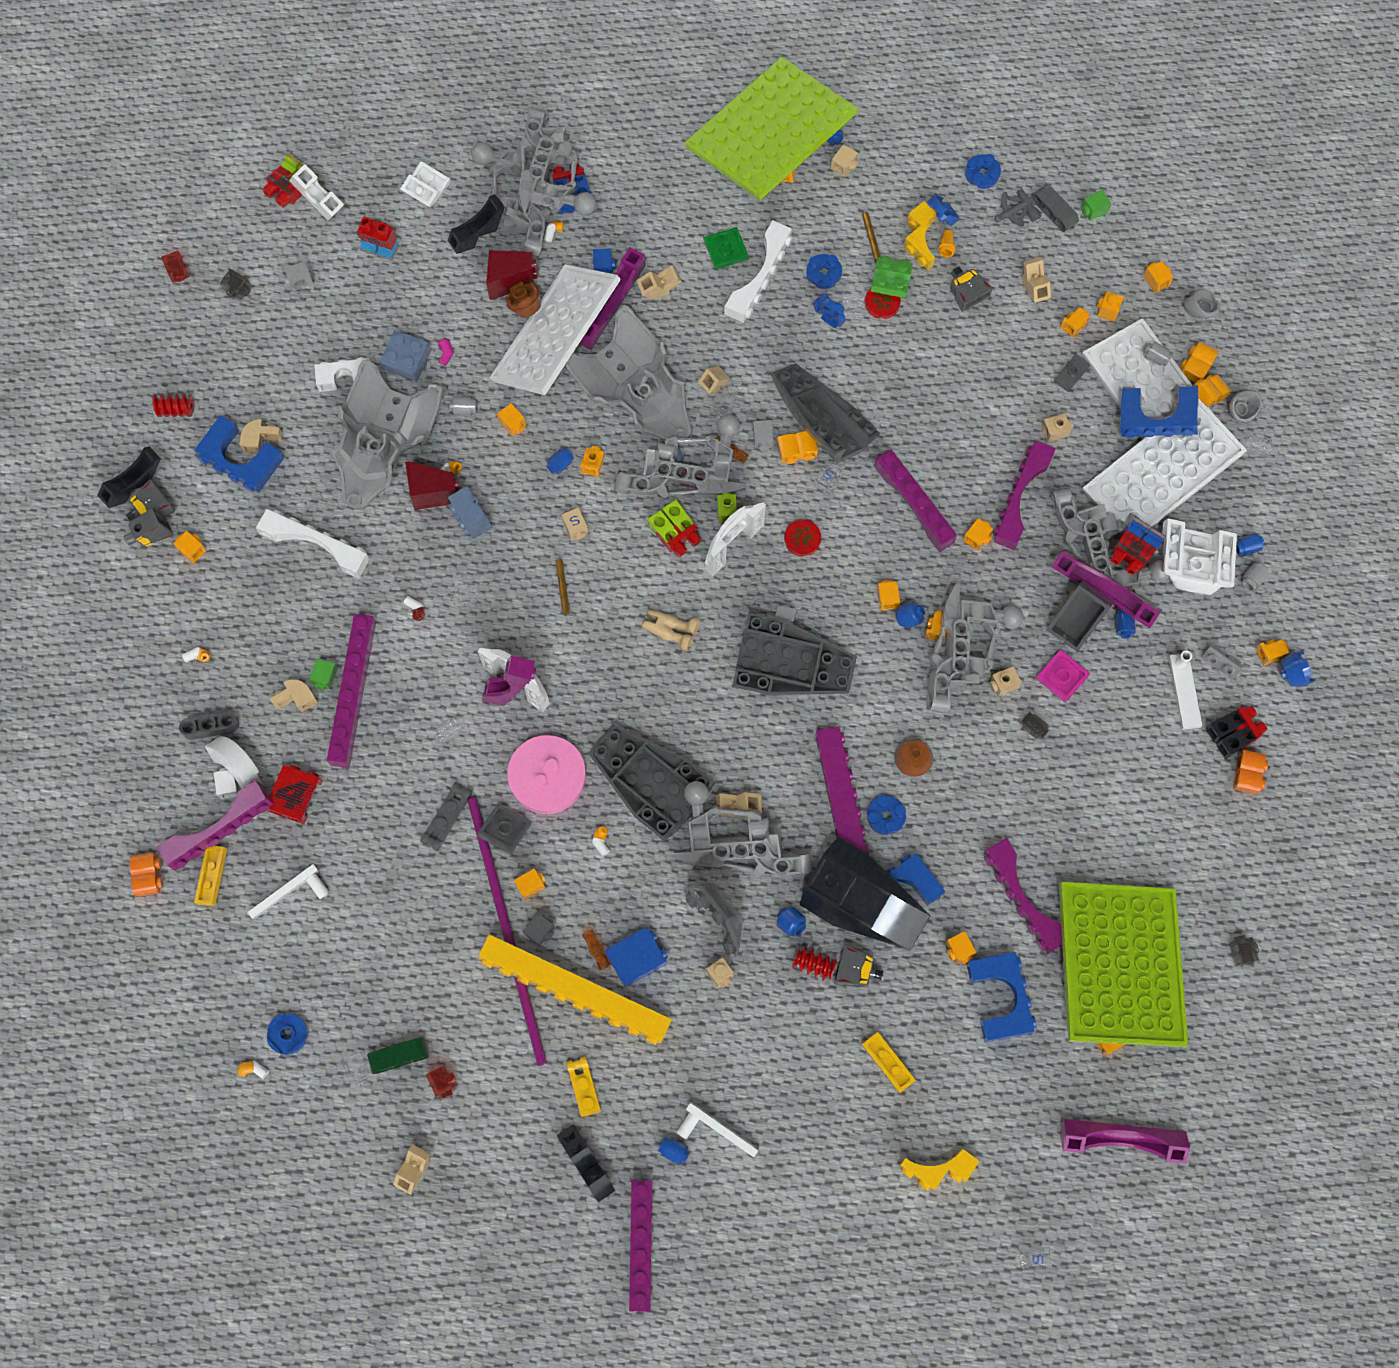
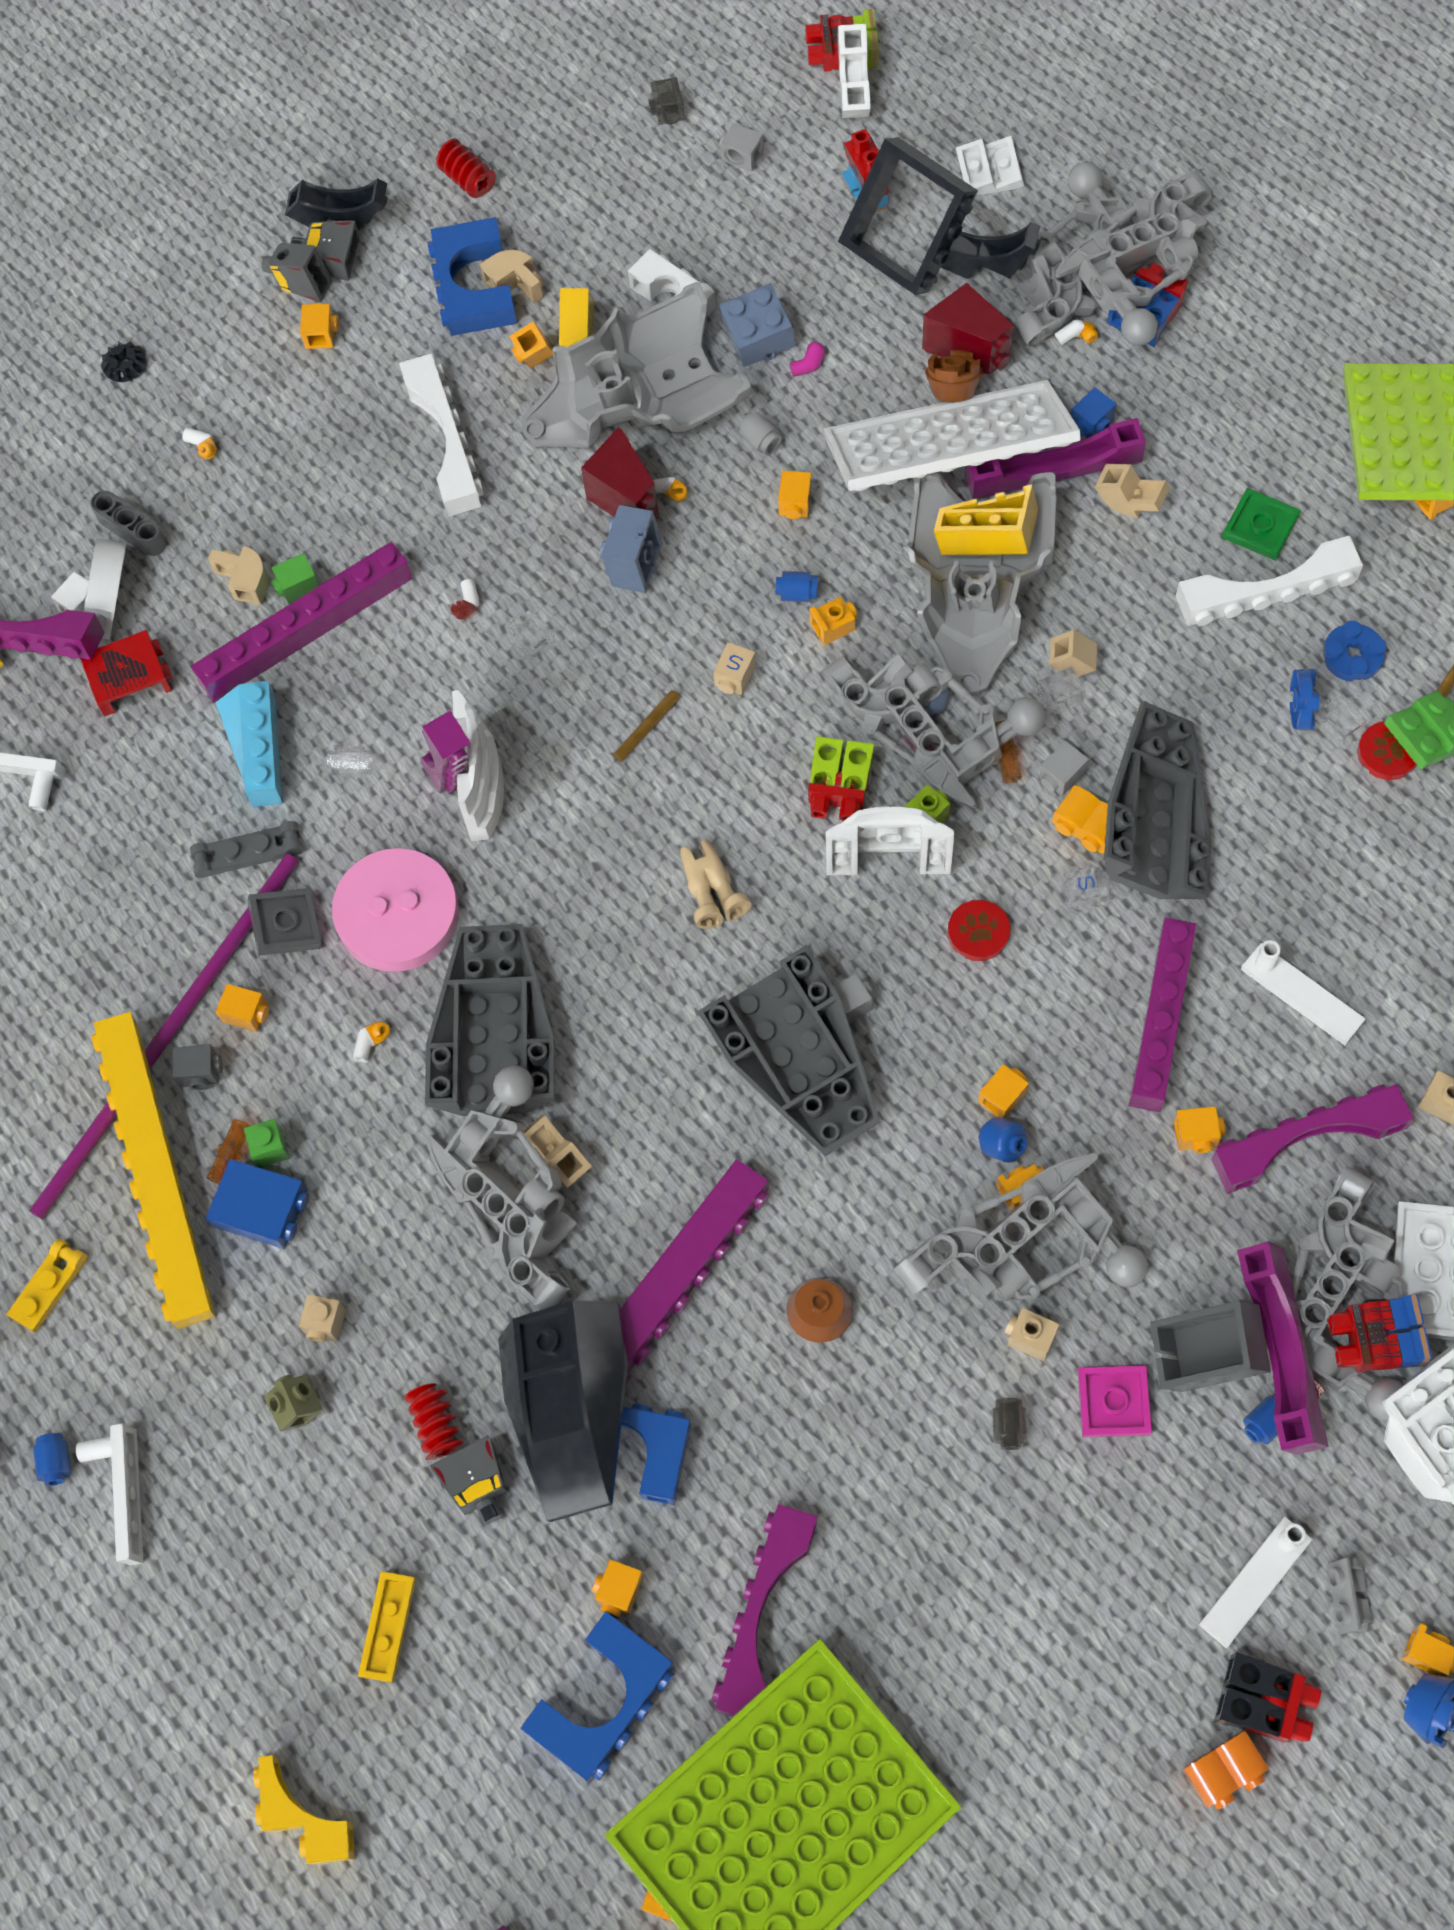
camera: 55 degrees right, 5 degrees down
(116, 654) = (128, 369): none -> black gear
(175, 267) = (626, 31): clear red brick -> none
(309, 461) = (530, 345): none -> light orange brick
(319, 432) = (575, 315): none -> yellow slope
(387, 762) = (252, 730): none -> medium azure wedge
(425, 210) = (870, 196): none -> black window
(610, 928) = (266, 1143): none -> bright green brick
(621, 355) = (989, 526): none -> yellow wedge
(723, 912) = (376, 1243): dark grey wedge -> none
(748, 1018) = (293, 1402): none -> olive brick
(791, 921) = (464, 1346): blue head -> none
(883, 804) = (723, 1326): blue plate -> none
(956, 438) = (1302, 992): none -> white piece

